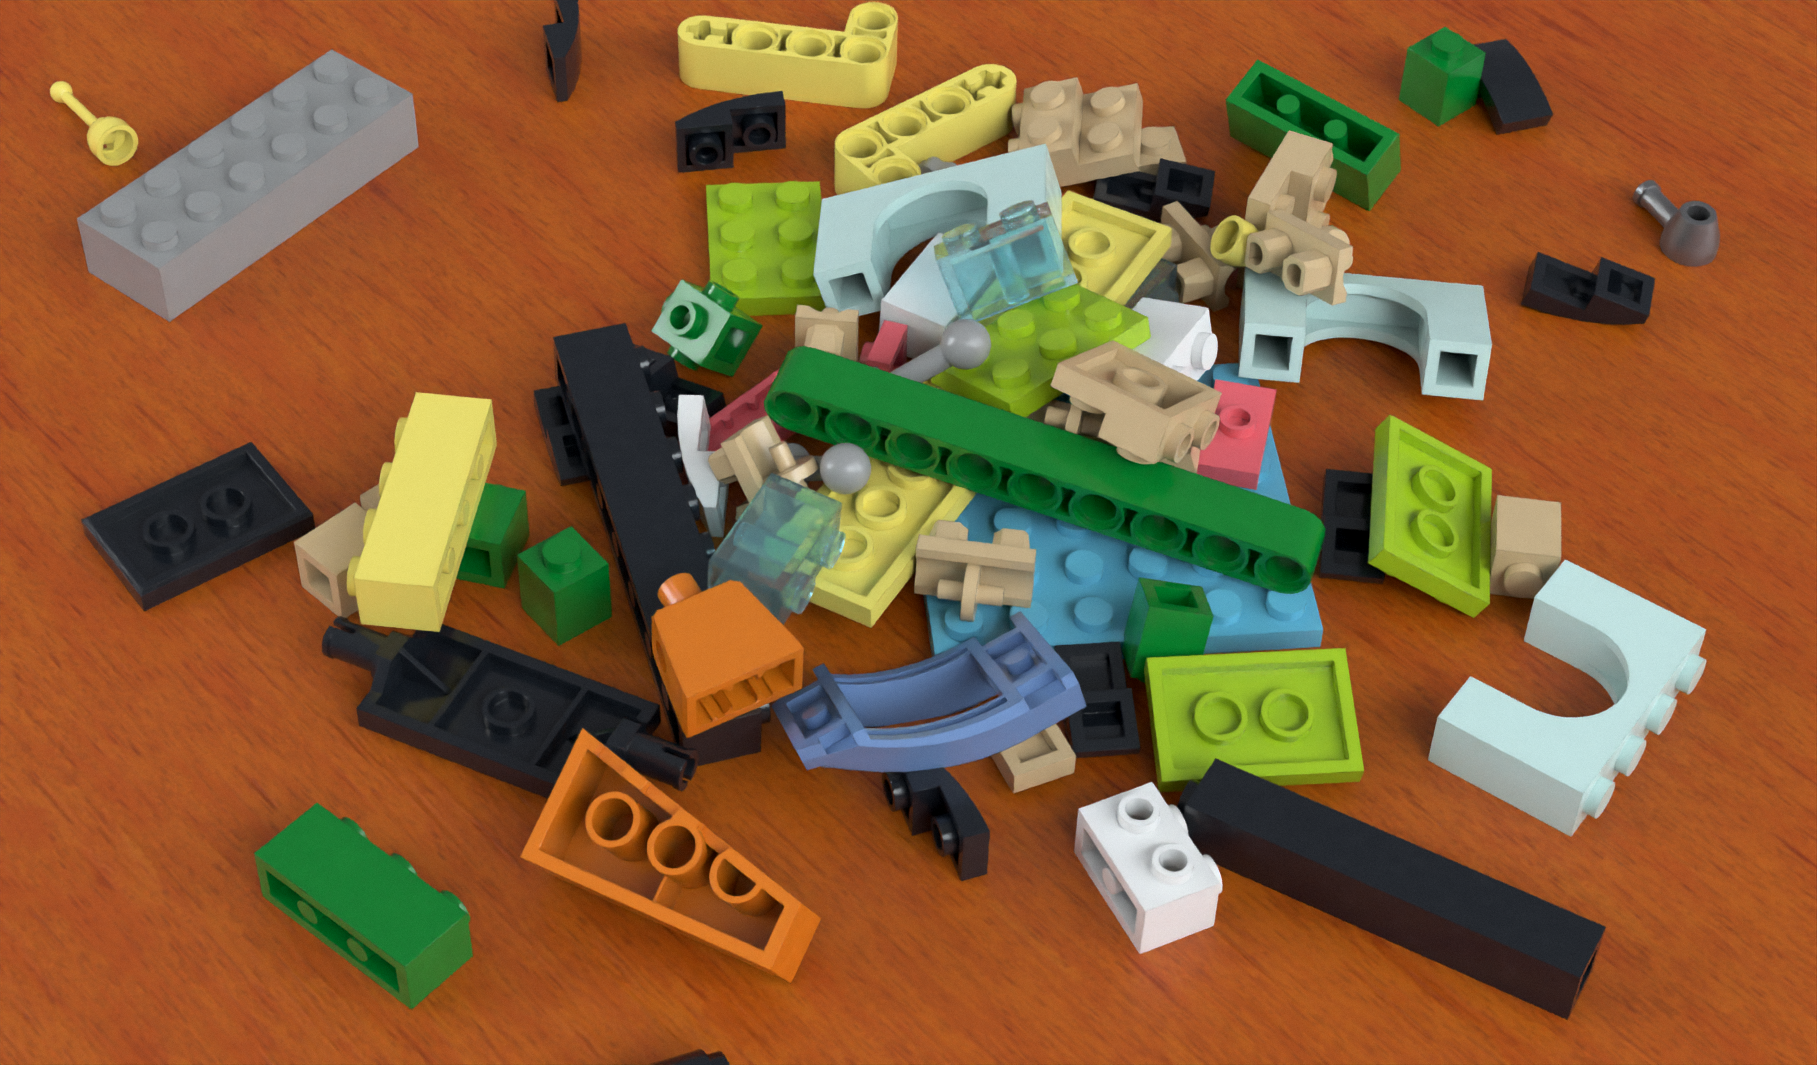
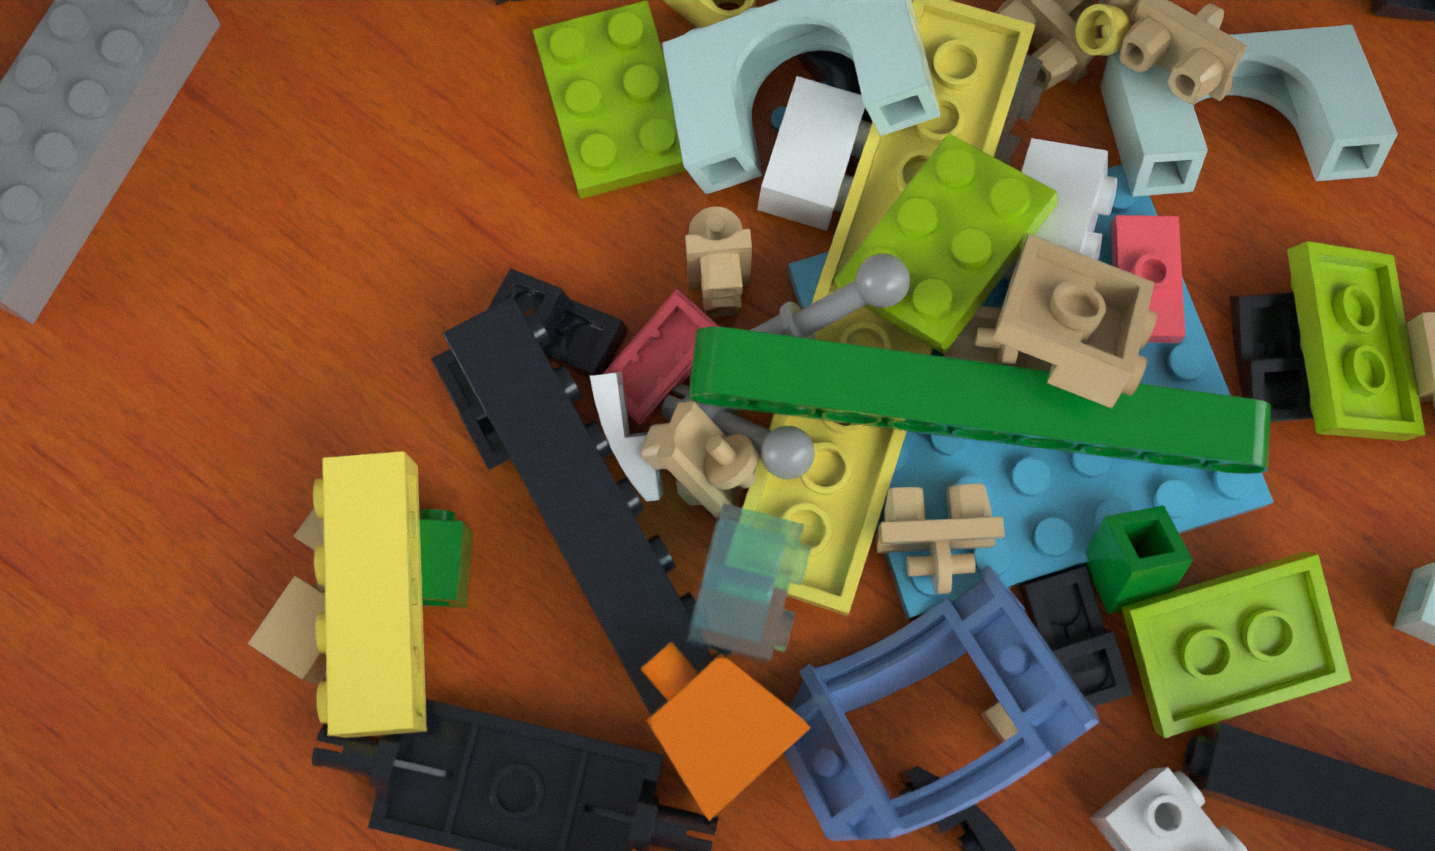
camera: 10 degrees left, 30 degrees up
(198, 525) = (140, 602): black tile -> none
(564, 585) = (530, 619): green brick -> none
(706, 327) = (584, 241): green brick -> none
(889, 348) = (771, 244): coral plate -> none
(1004, 261) = (893, 147): clear light blue brick -> none

